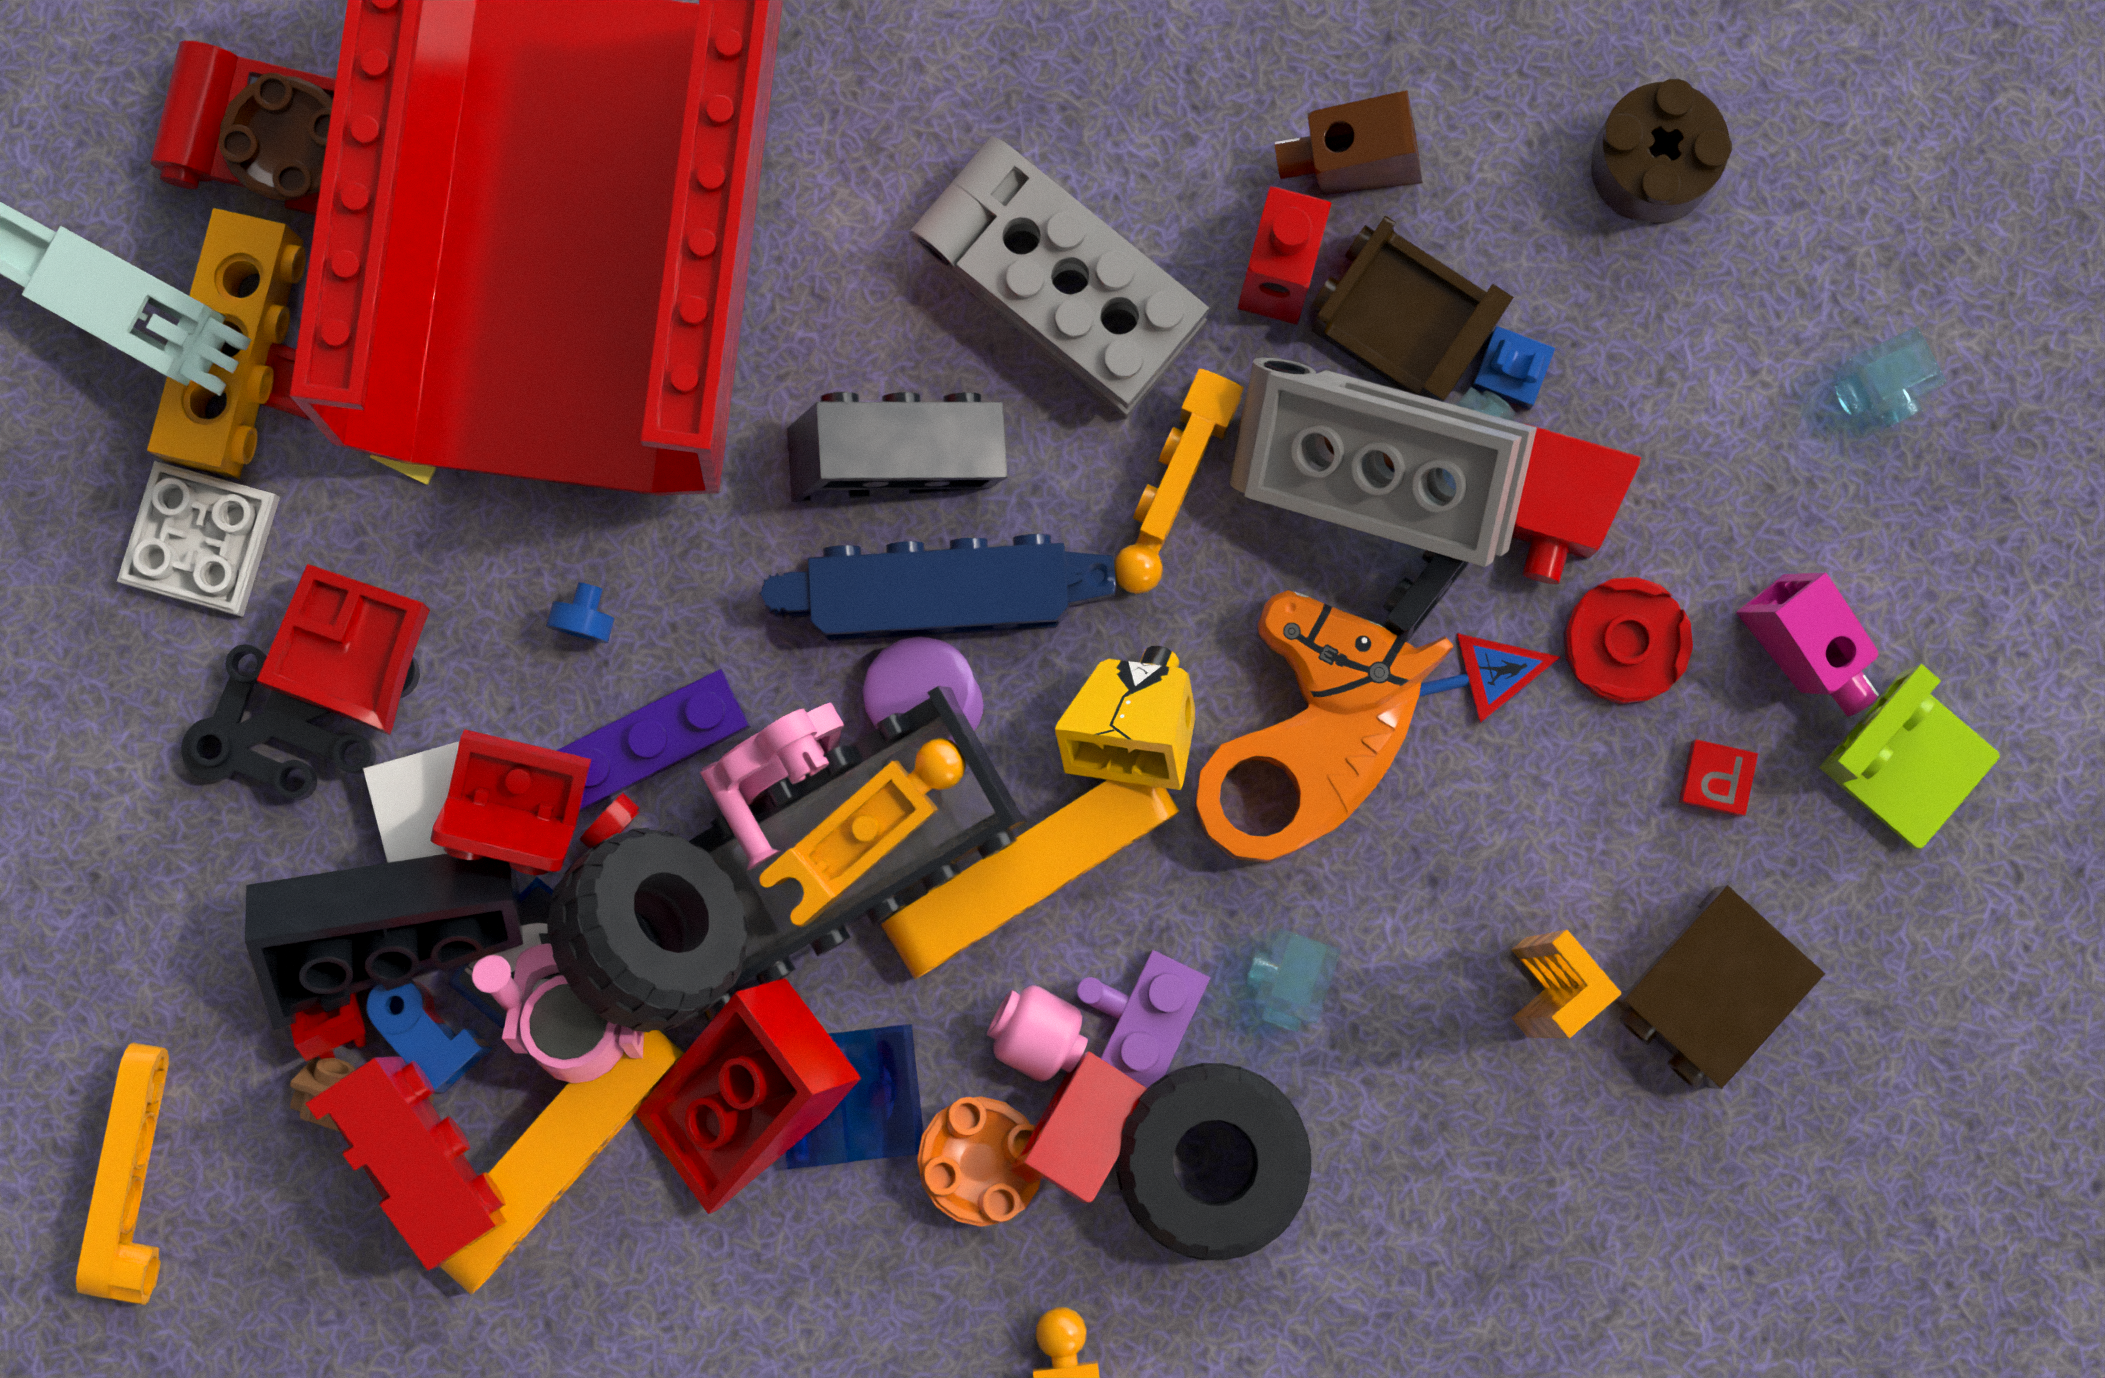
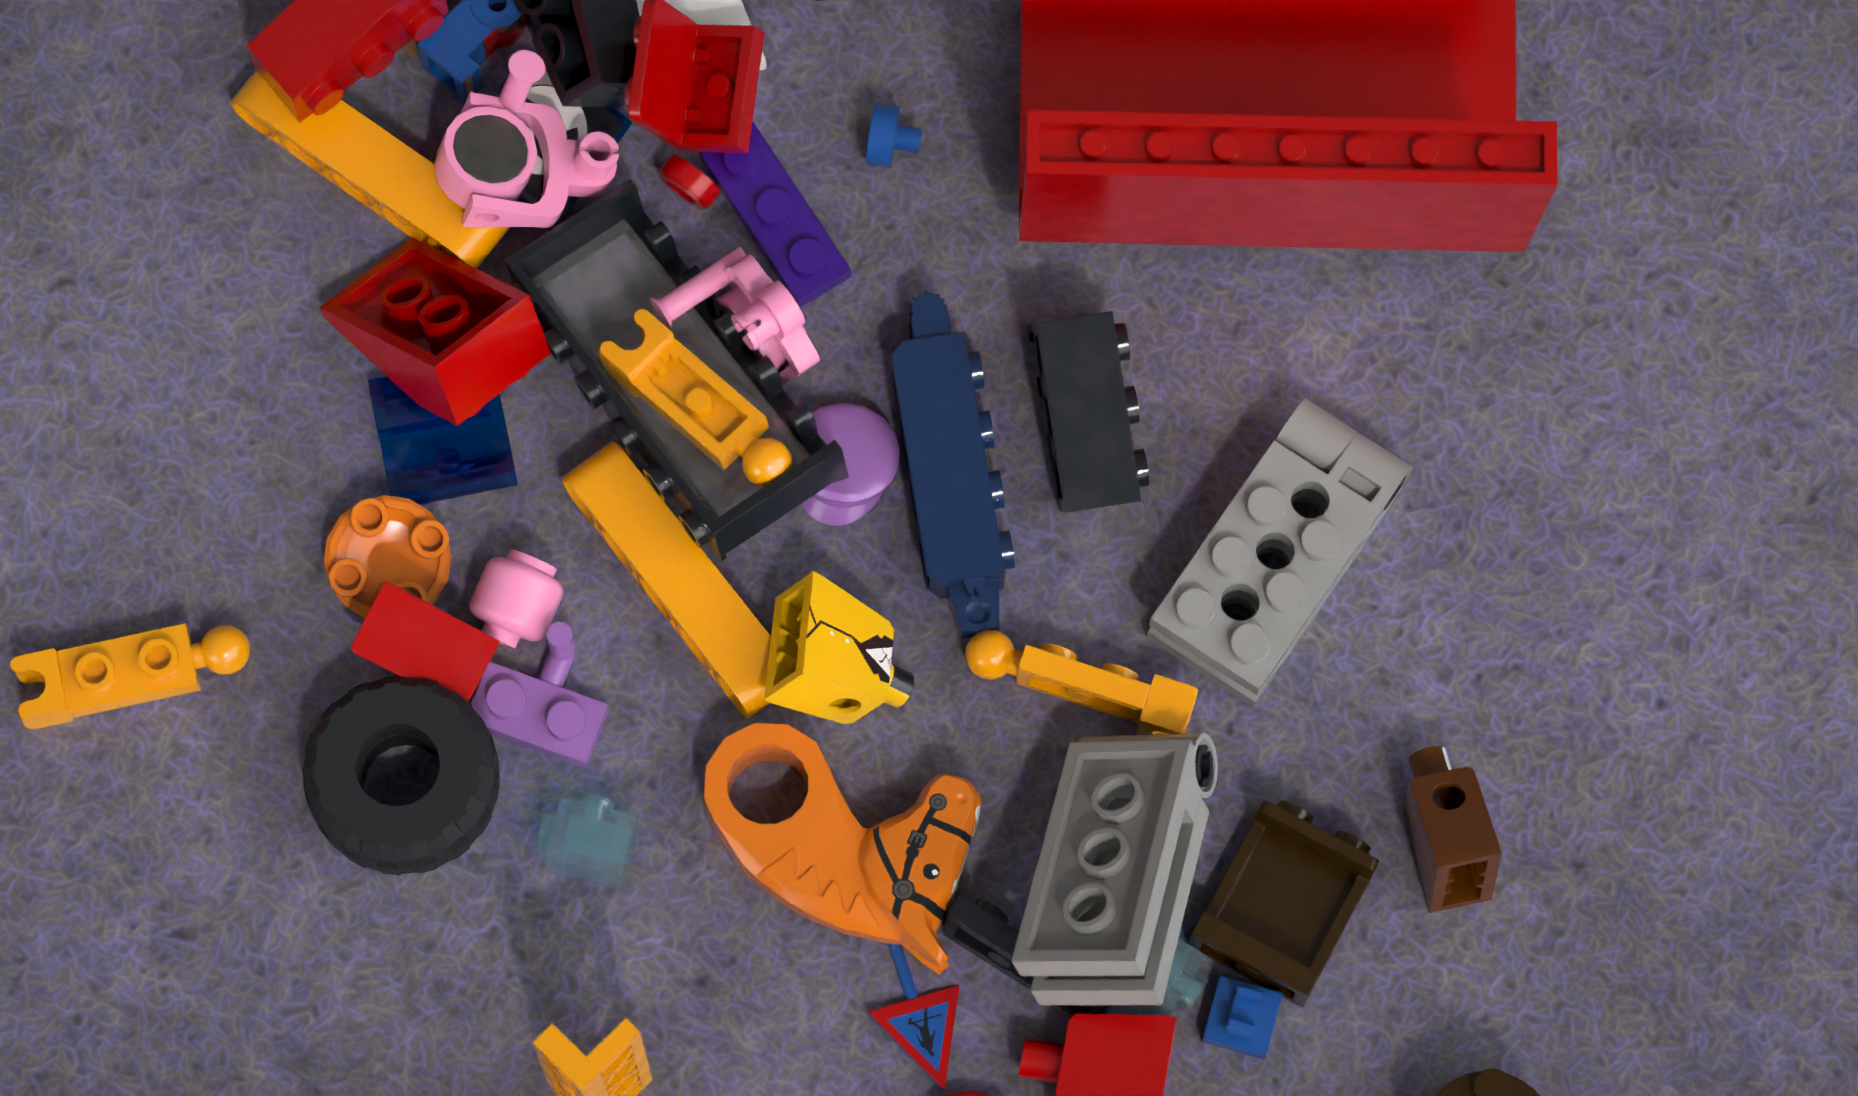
camera: 80 degrees right, 10 degrees down
(612, 959) = (539, 175): black tyre -> none
(1284, 254) = (1331, 766): red torso -> none

